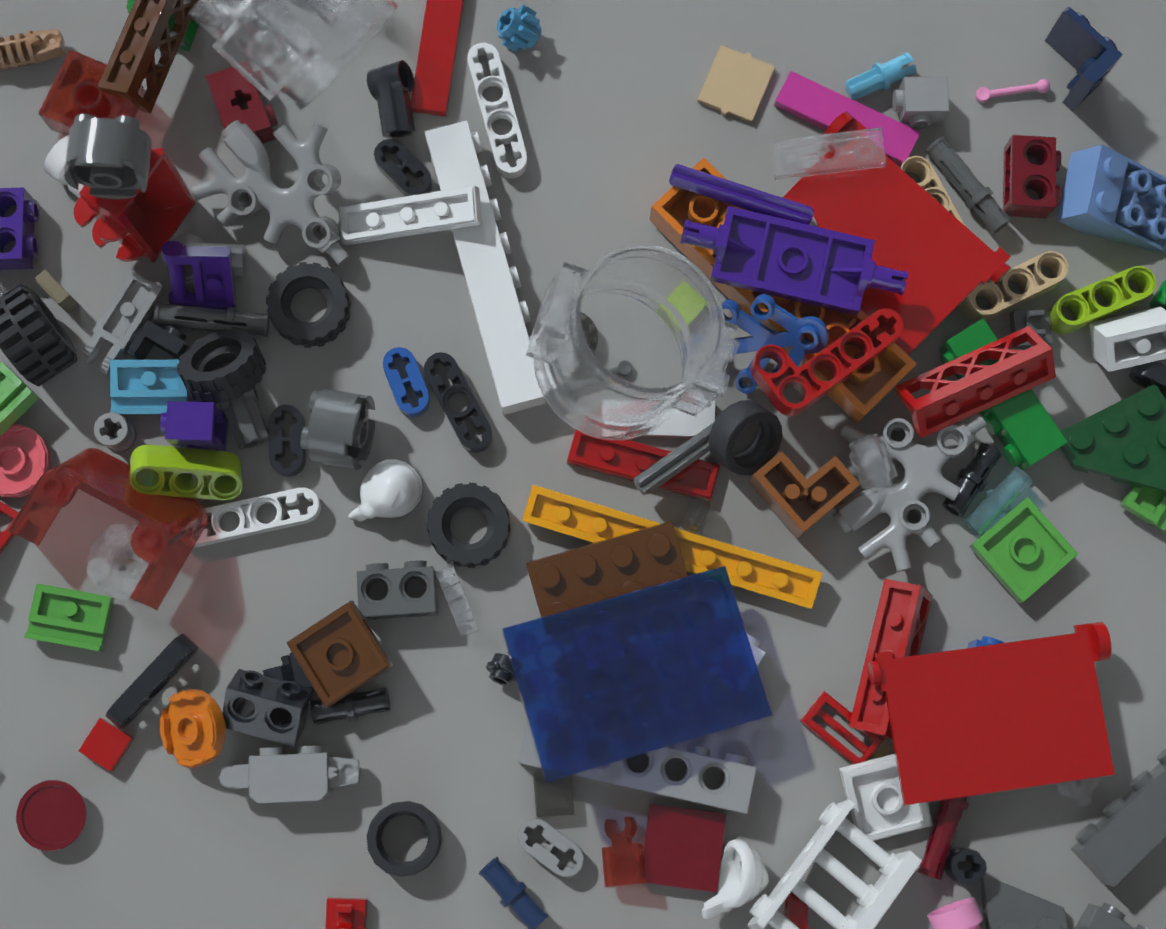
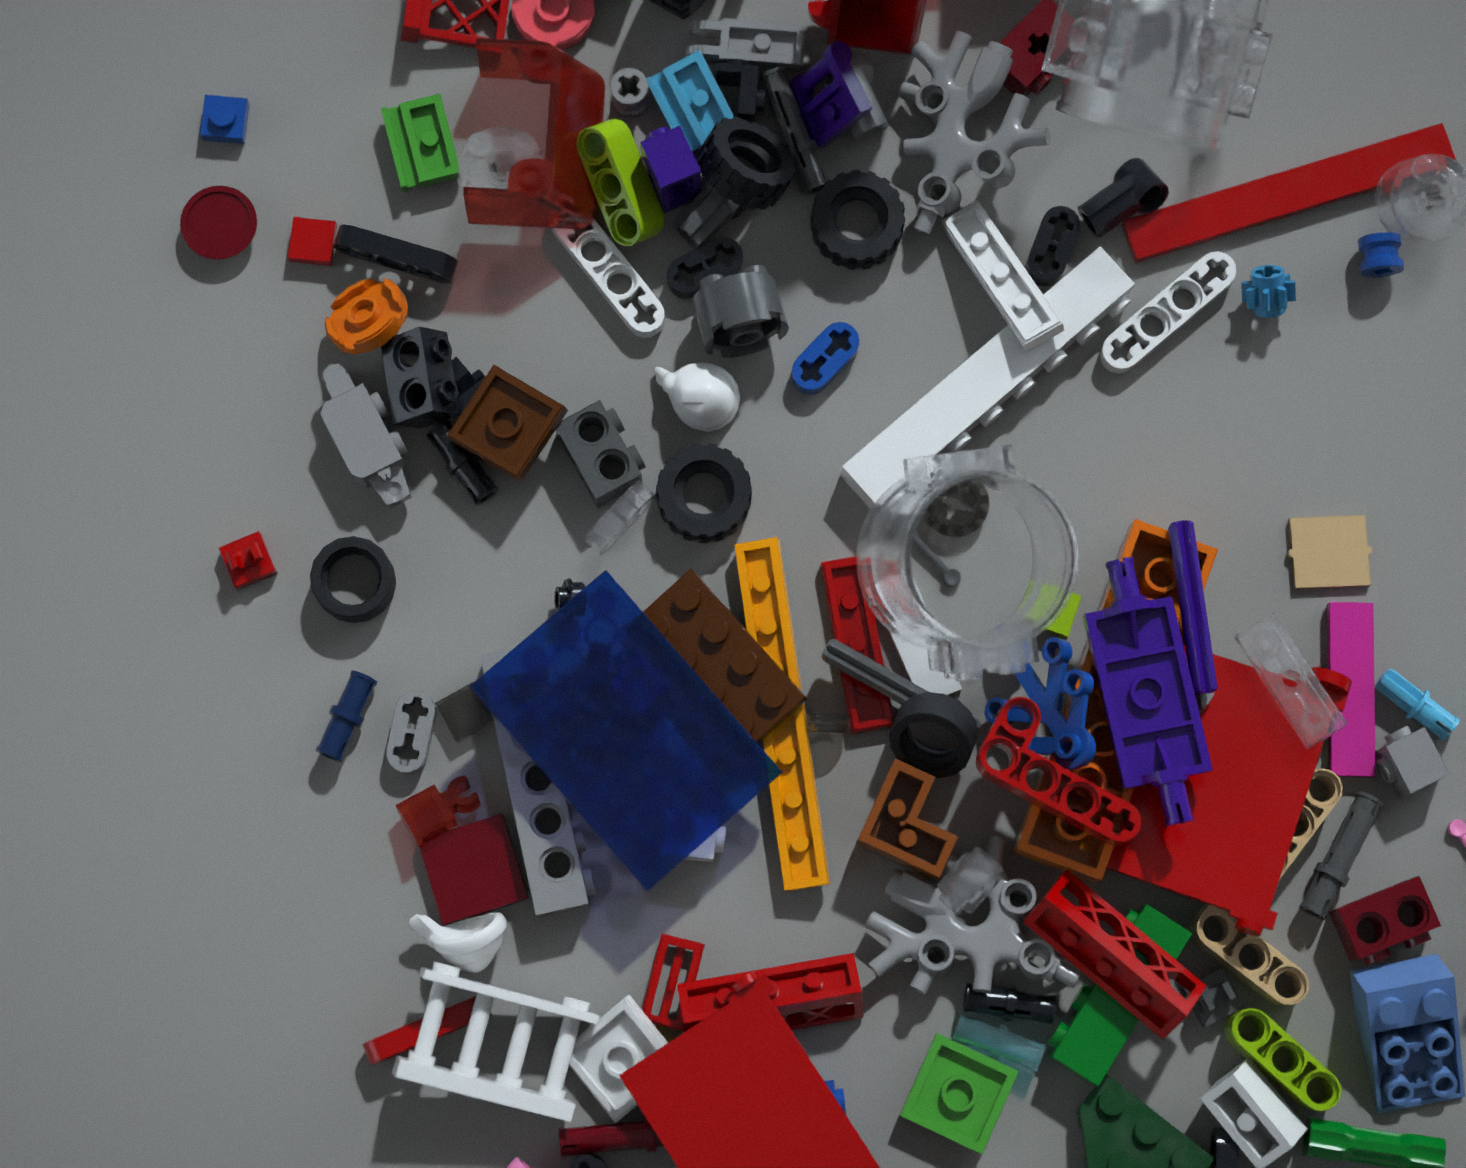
camera: 65 degrees right, 0 degrees up
(454, 374) = (839, 390): black beam -> none

